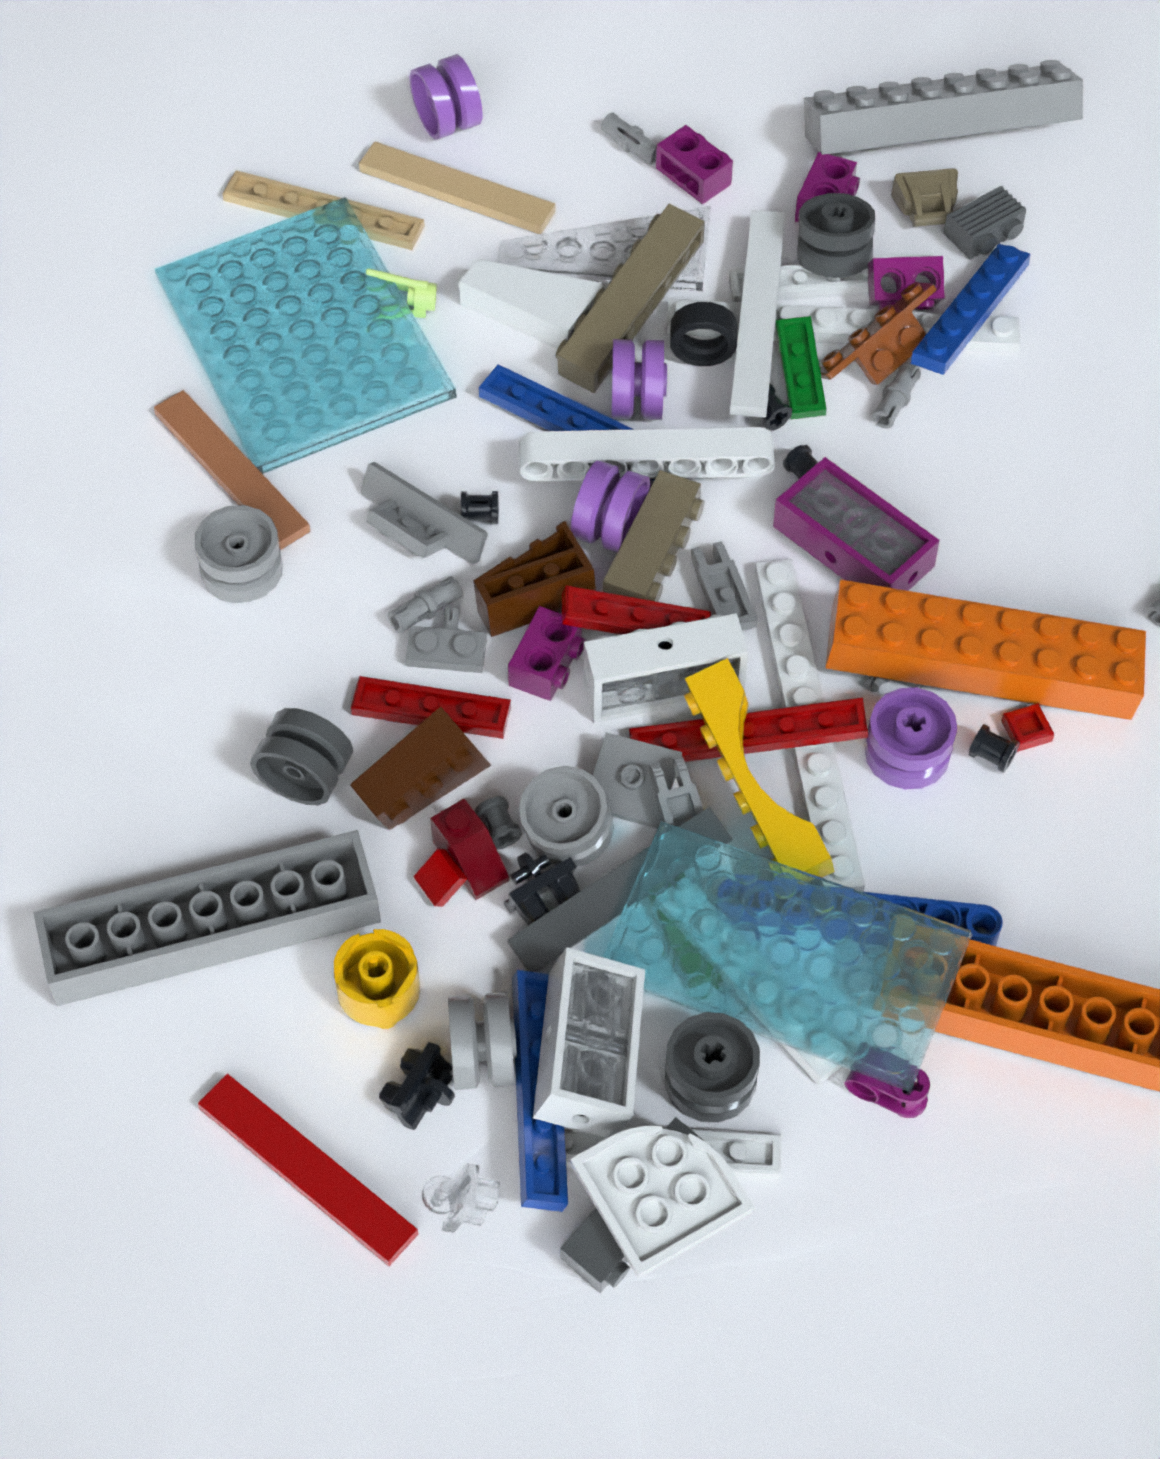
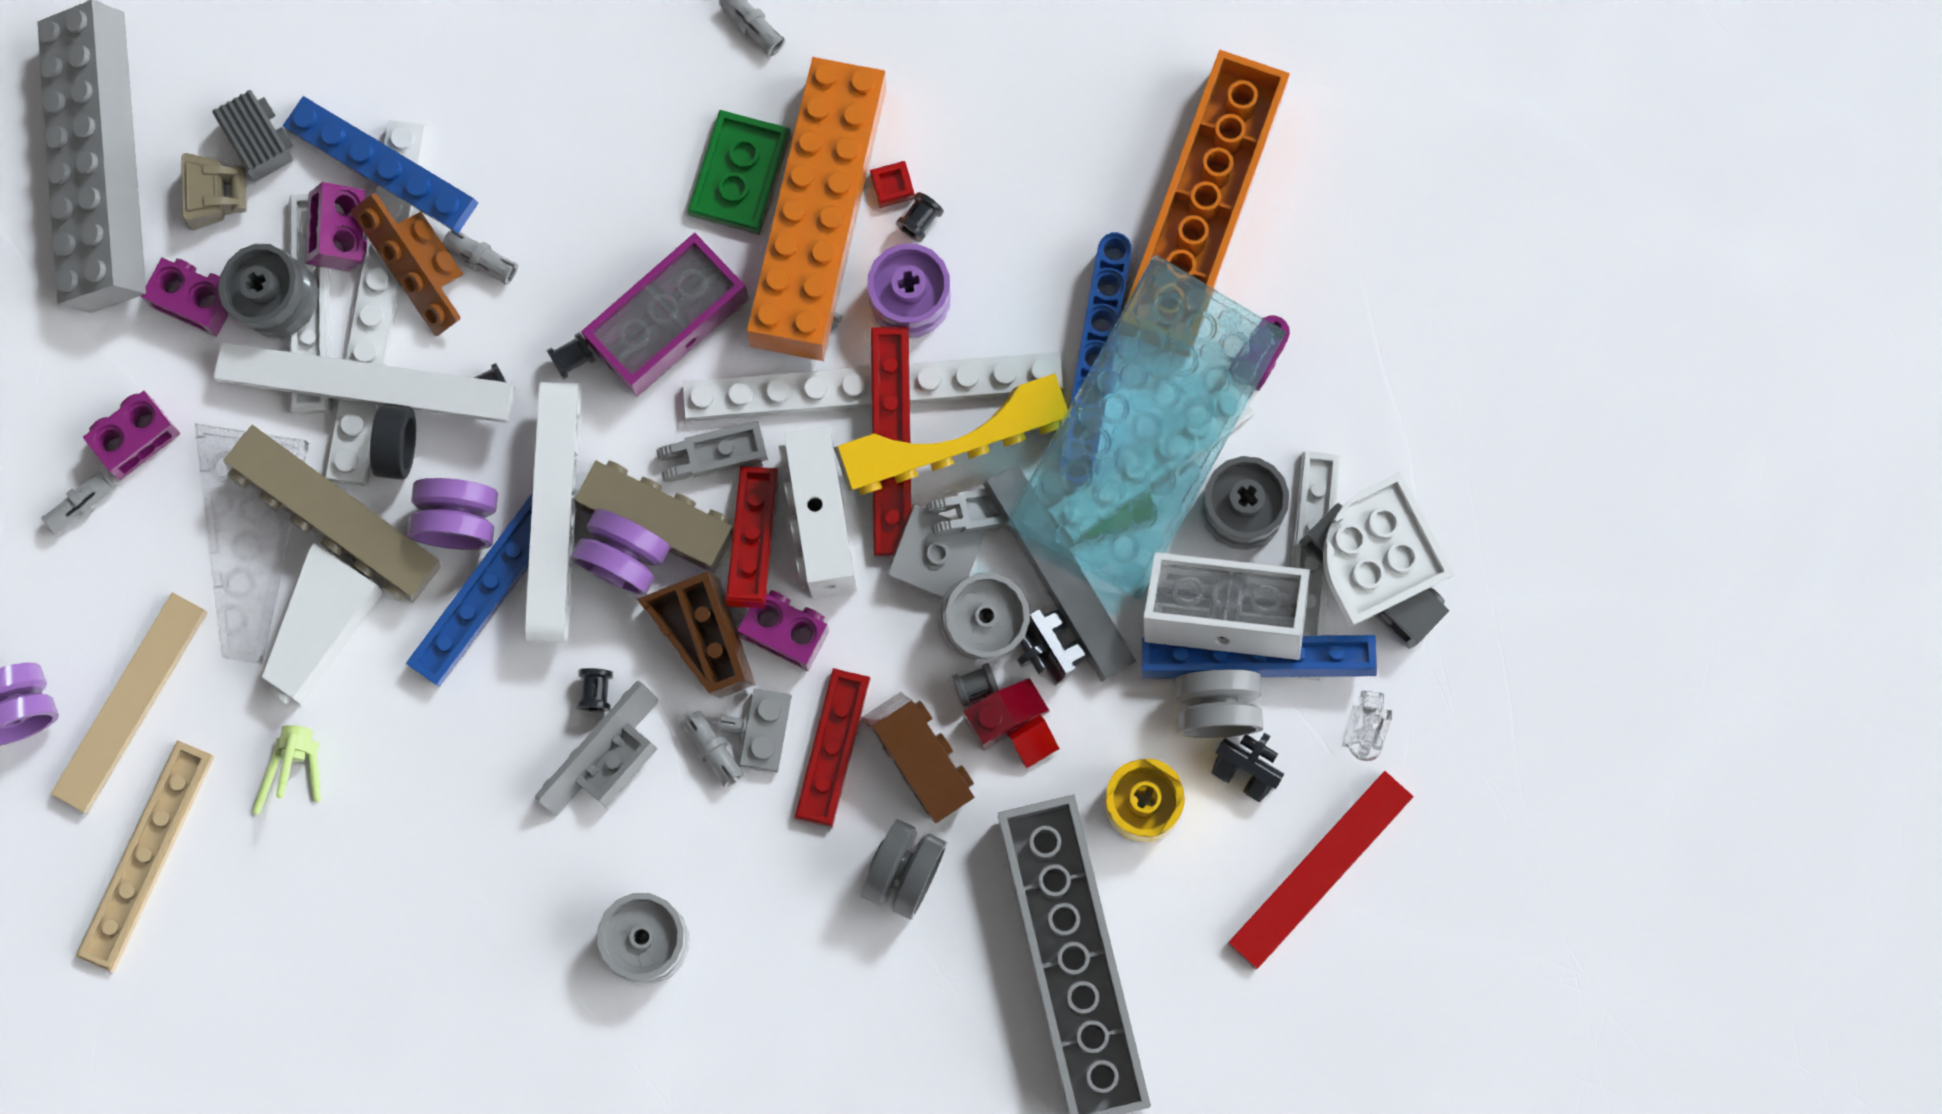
camera: 85 degrees left, 20 degrees up
(229, 465) = (512, 955): nougat tile -> none
(303, 336) = (336, 884): clear light blue plate -> none
(800, 367) = (437, 348): green tile -> none
(1019, 585) = (739, 172): none -> green tile

